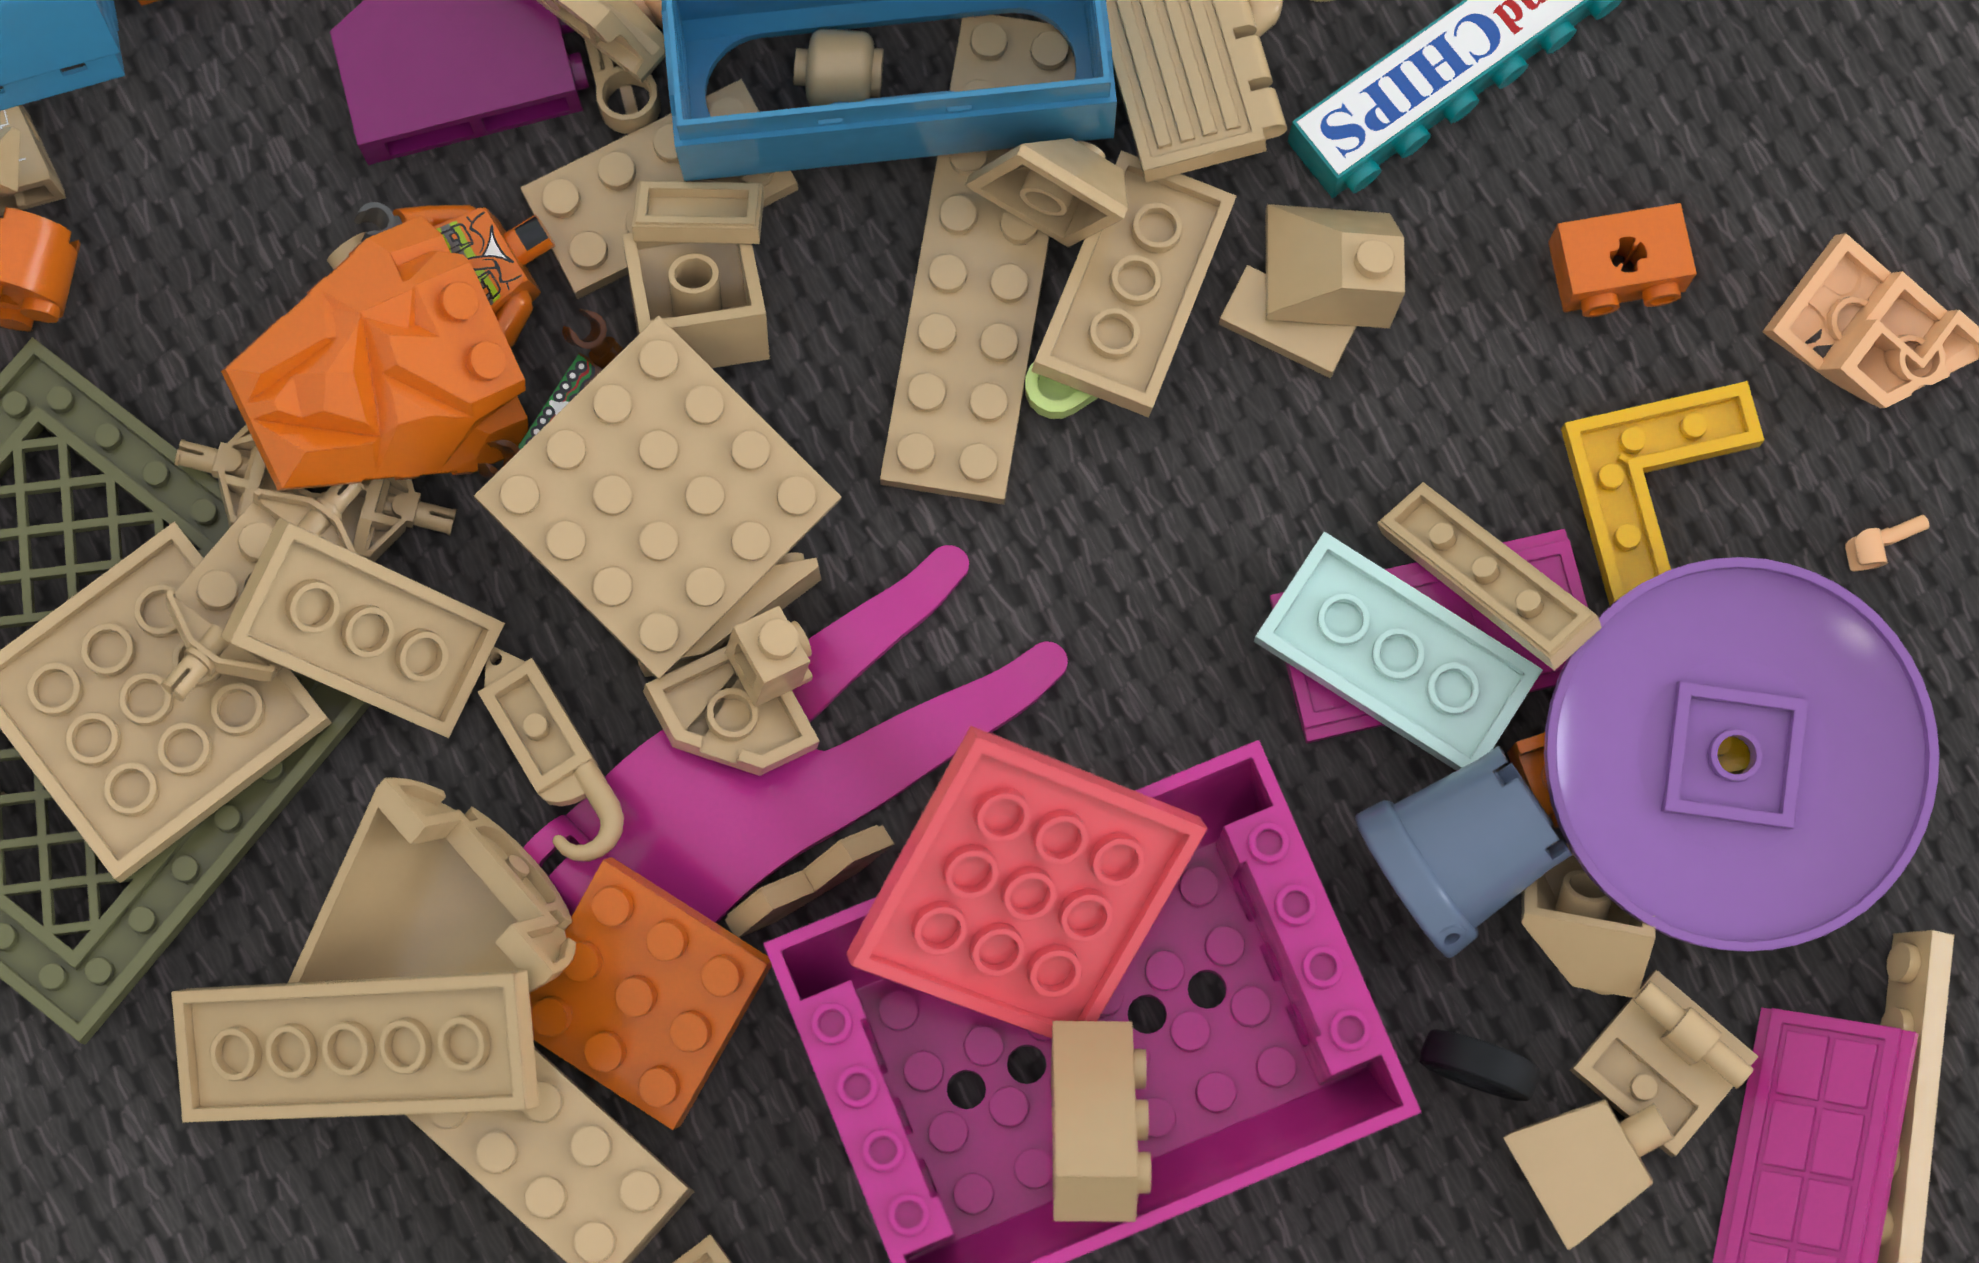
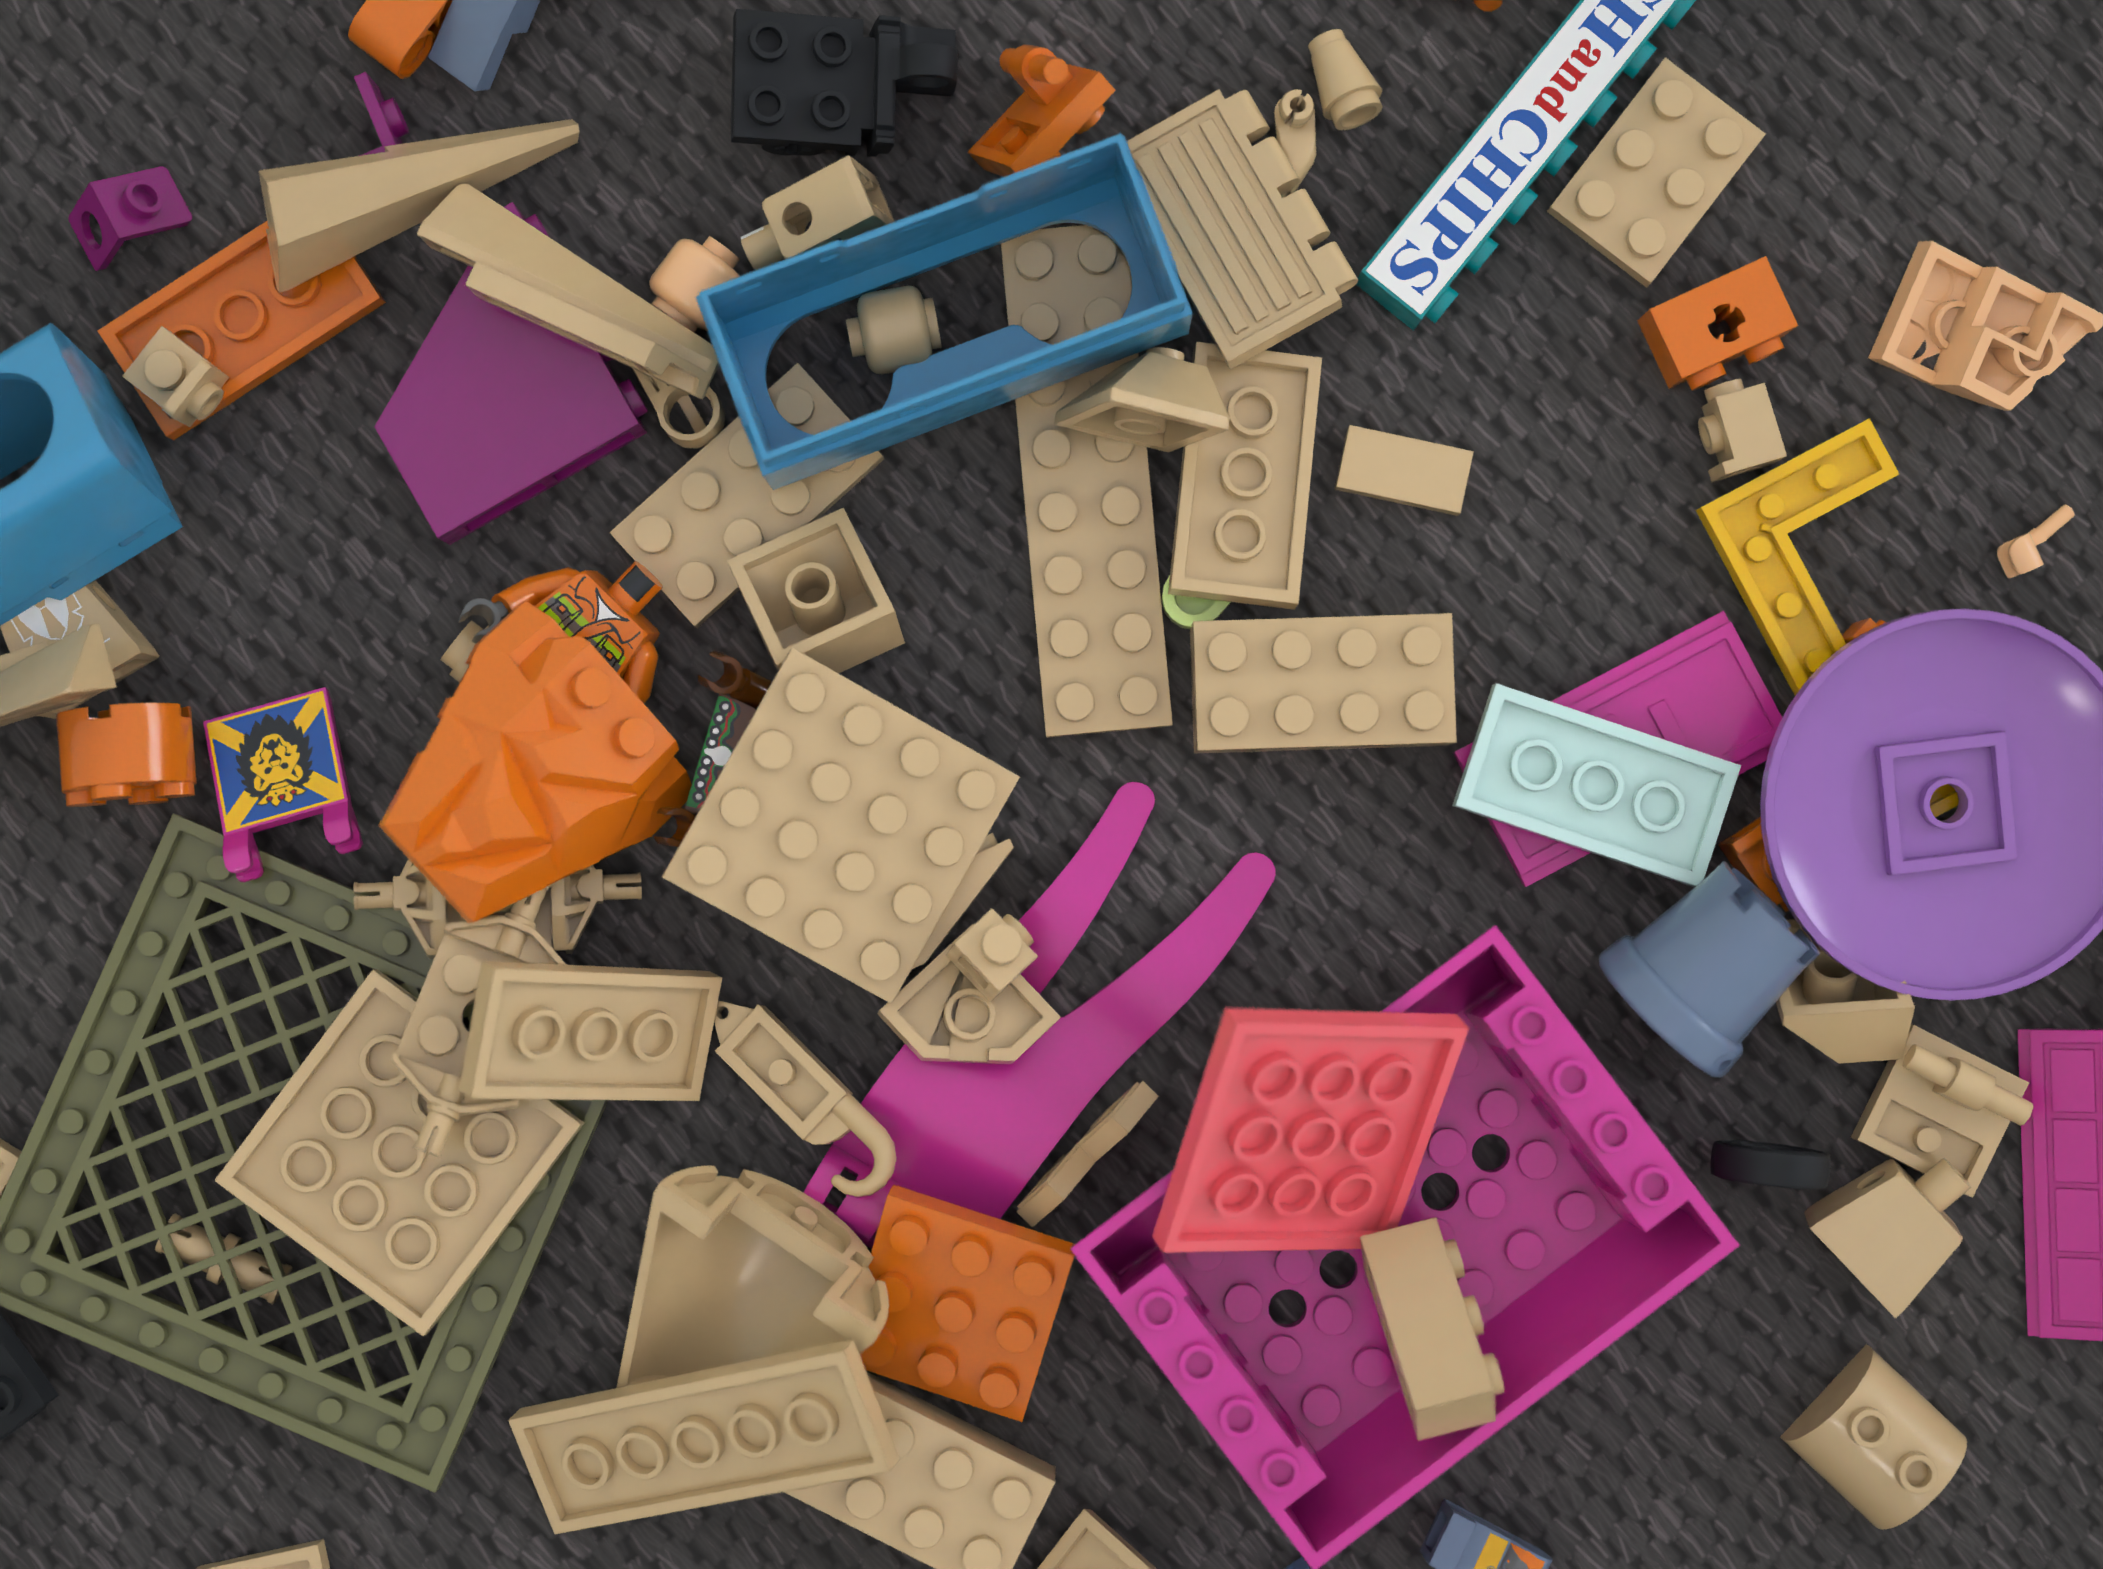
camera: 15 degrees left, 10 degrees up
(140, 323) = (277, 769): none -> flag
(698, 212) = (796, 519): tan tile -> none
(1156, 494) = (1323, 683): none -> tan brick
(1333, 266) = (1436, 404): tan slope -> none
(1489, 576) = (1669, 687): tan tile -> none
(1598, 110) = (1656, 172): none -> tan plate
(1619, 361) = (1739, 429): none -> tan brick

